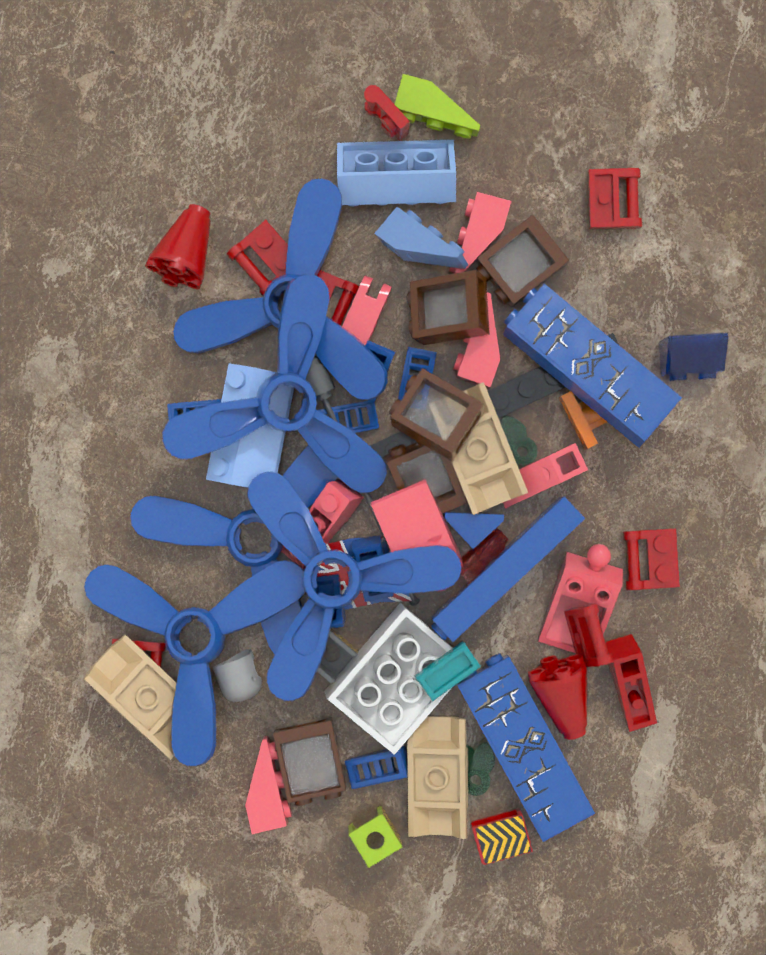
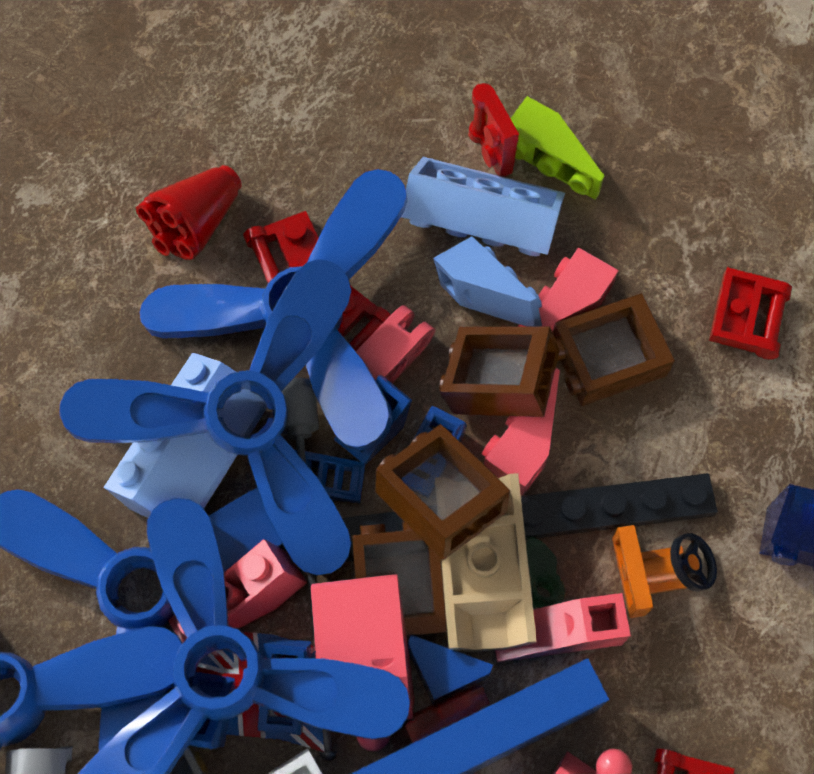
camera: 15 degrees right, 20 degrees down
(590, 364) = (673, 500): brick -> none

